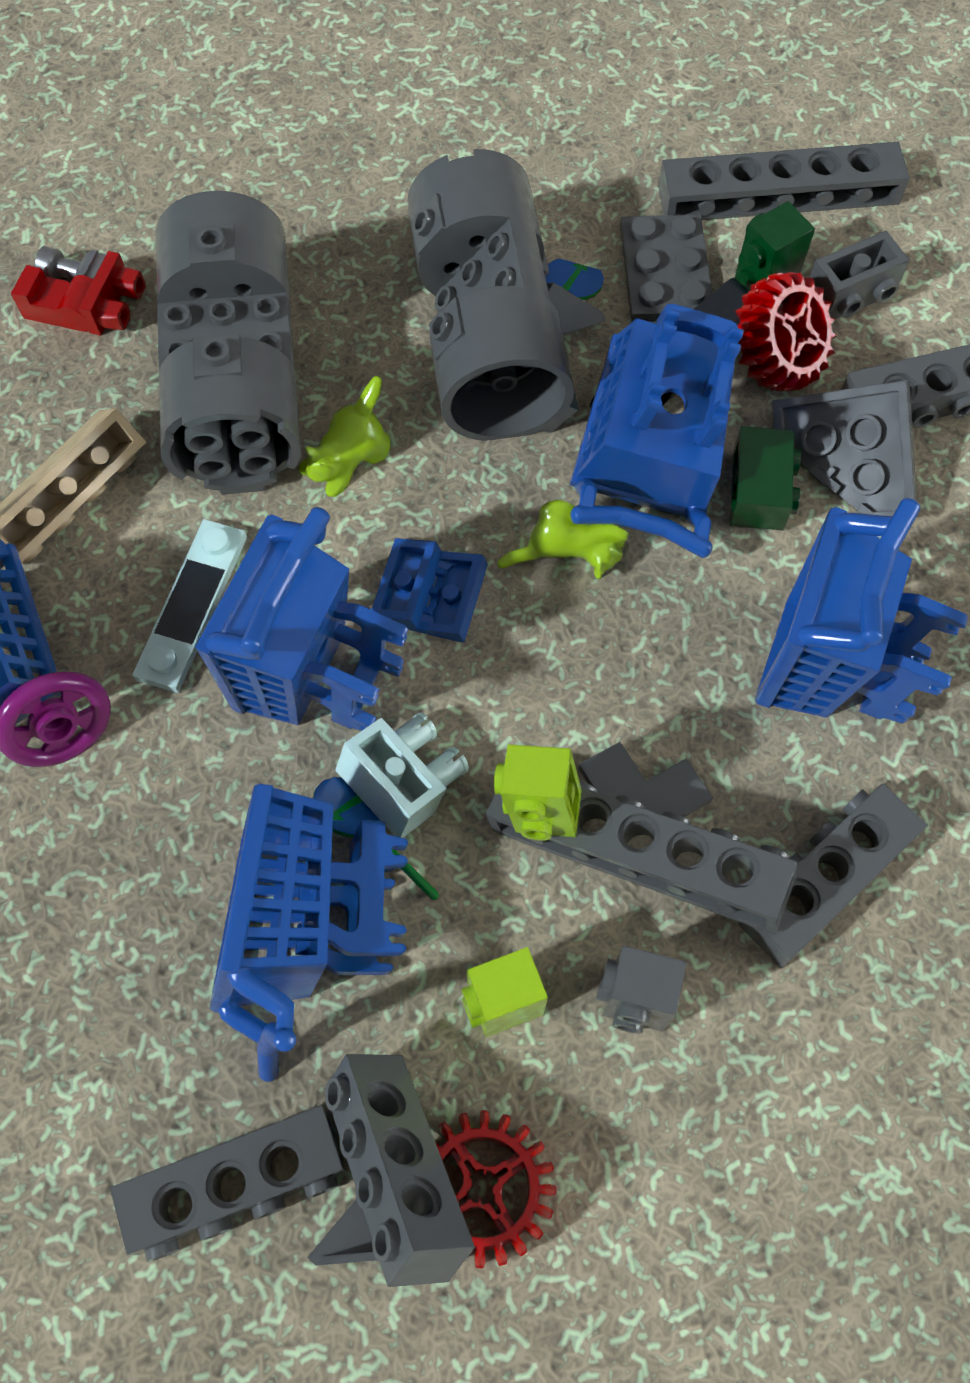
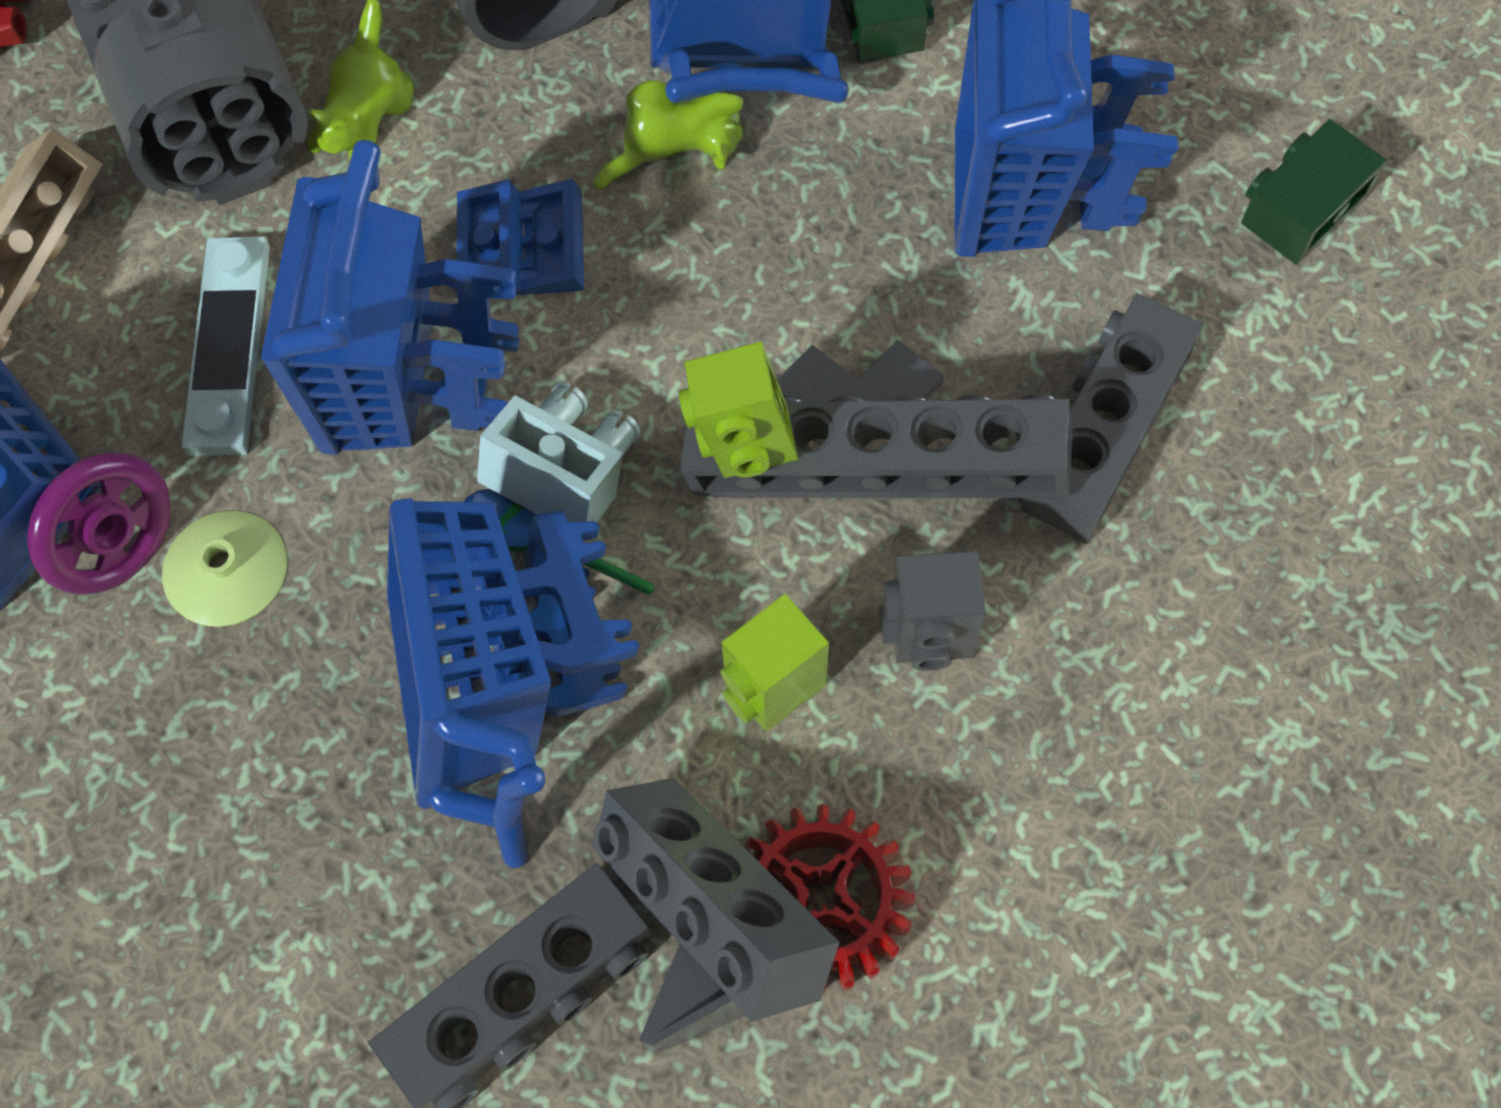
camera: 15 degrees left, 0 degrees up
(144, 792) = (236, 588): none -> yellowish green dish

